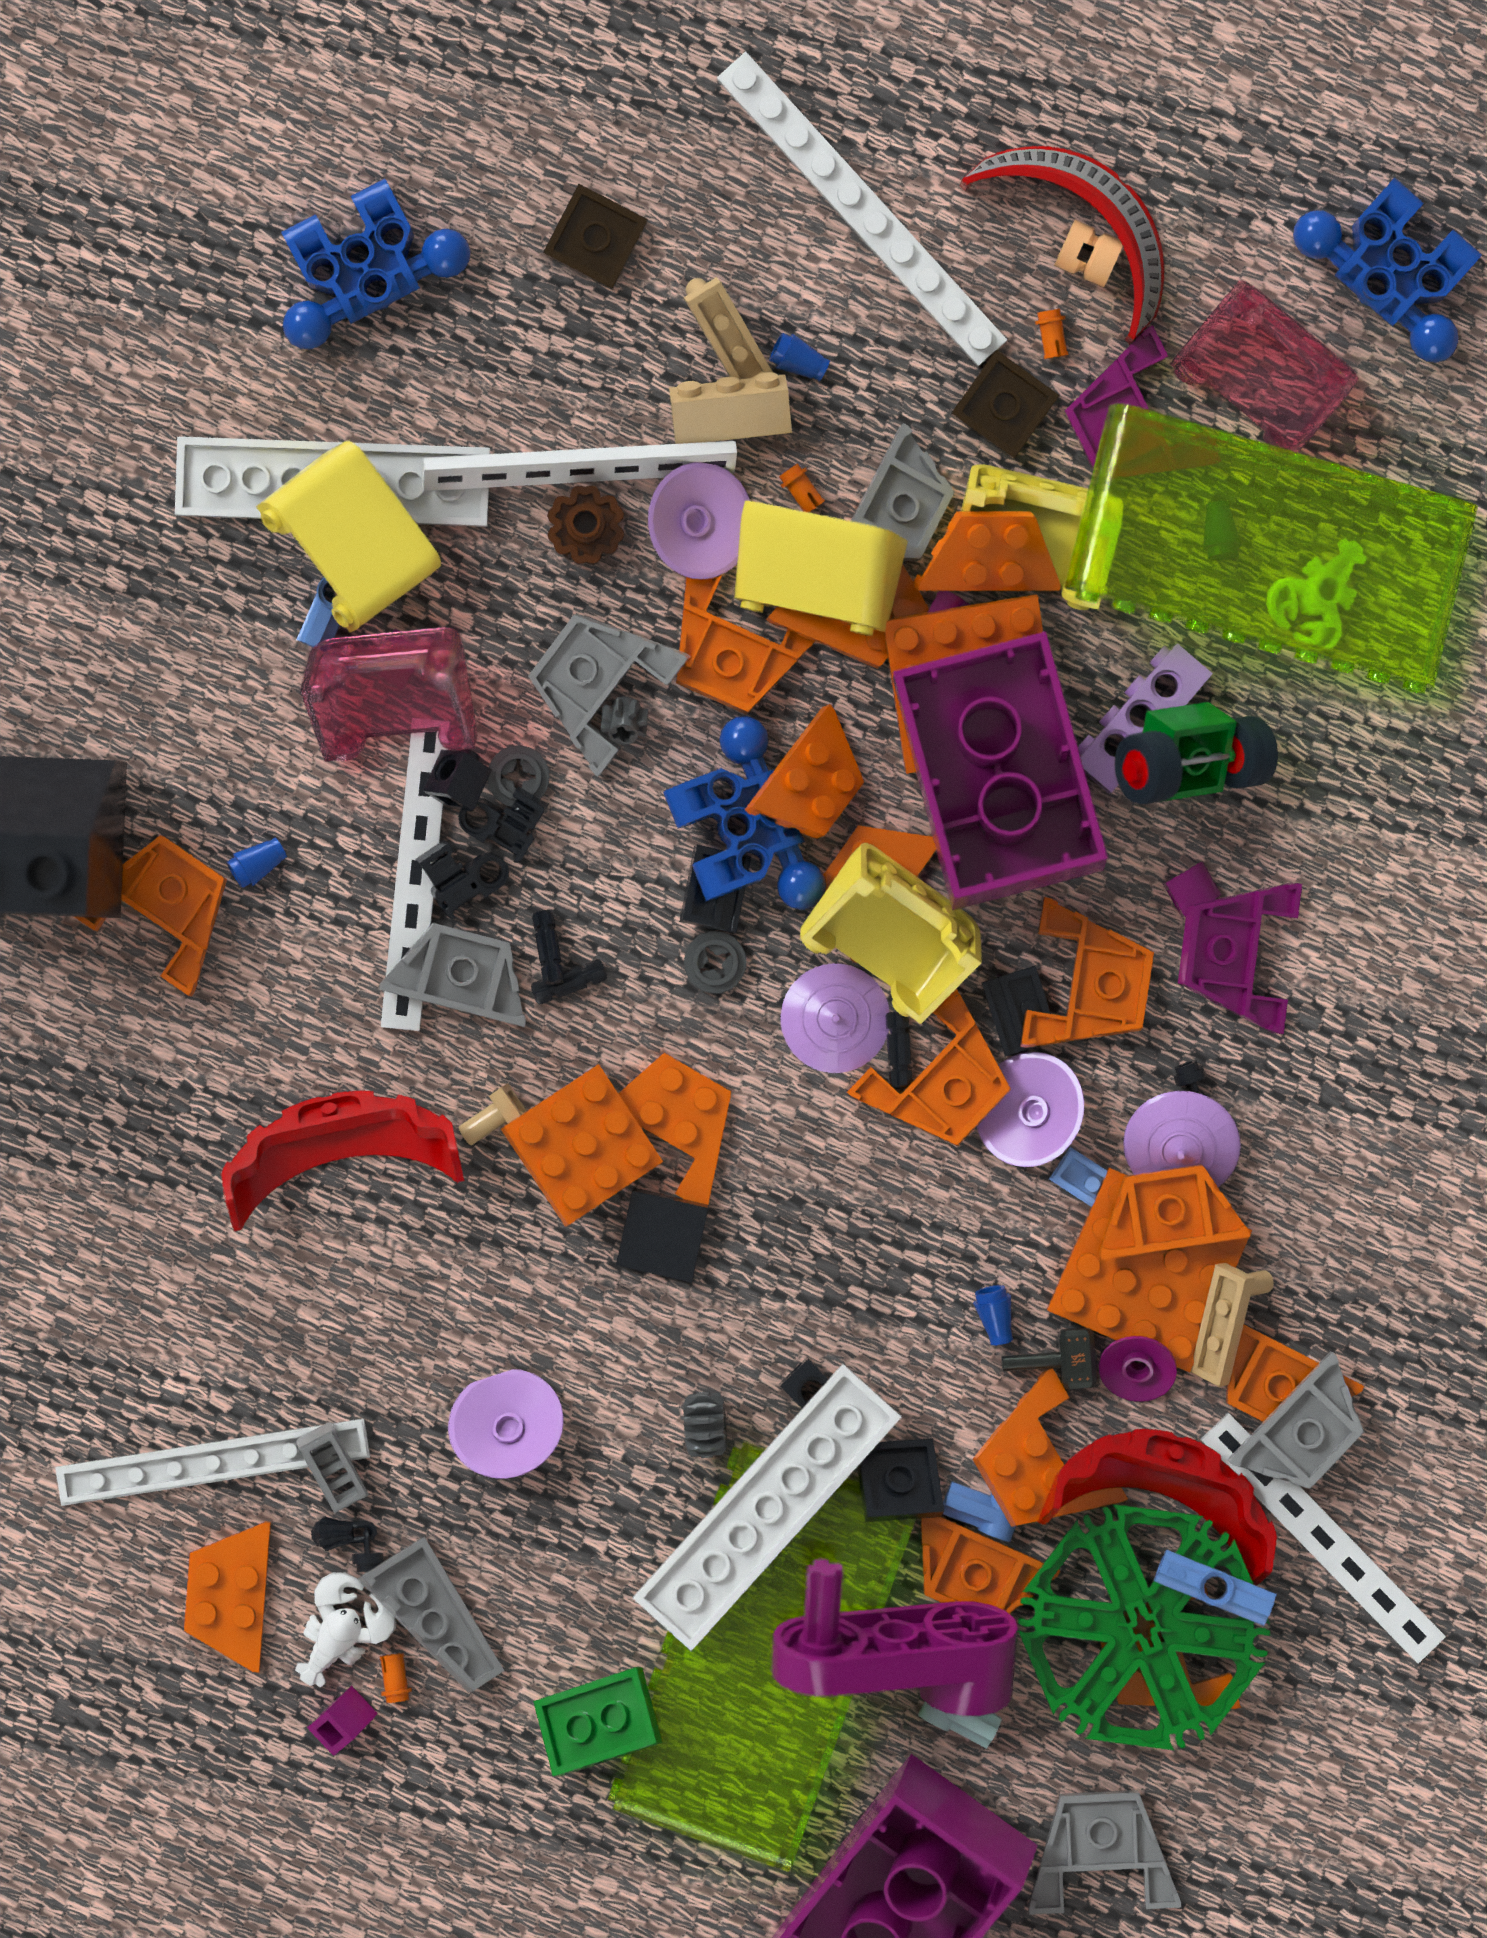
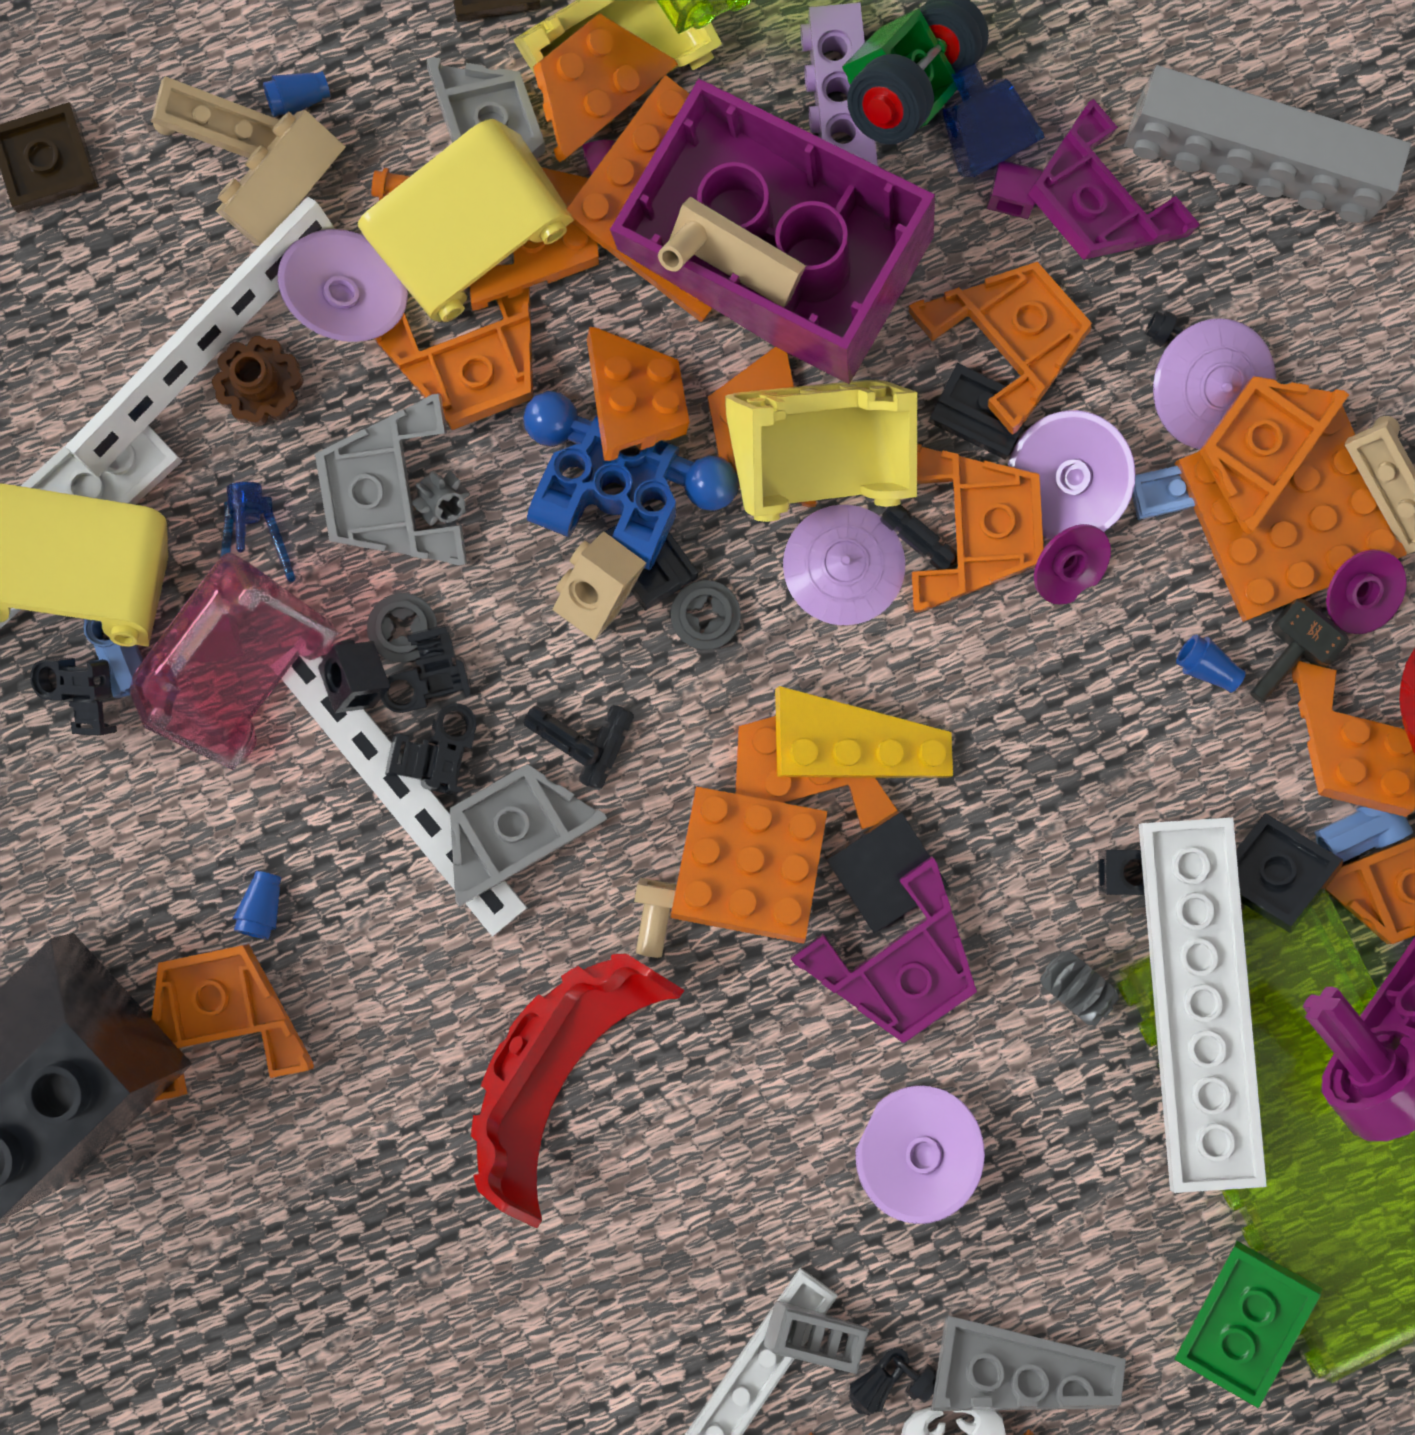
camera: 45 degrees left, 5 degrees down
(283, 613) = (79, 684): none -> black piece
(498, 598) = (244, 507): none -> clear blue plant
(611, 1314) = (911, 977): none -> magenta wing
(664, 878) = (597, 584): none -> tan brick
(719, 1130) = (847, 741): none -> yellow wing
(953, 760) = (731, 250): none -> tan piece
(973, 1164) = (1072, 563): none -> magenta dish
(1212, 833) = (987, 122): none -> clear blue torso
(1370, 1028) = (1266, 145): none -> light grey brick

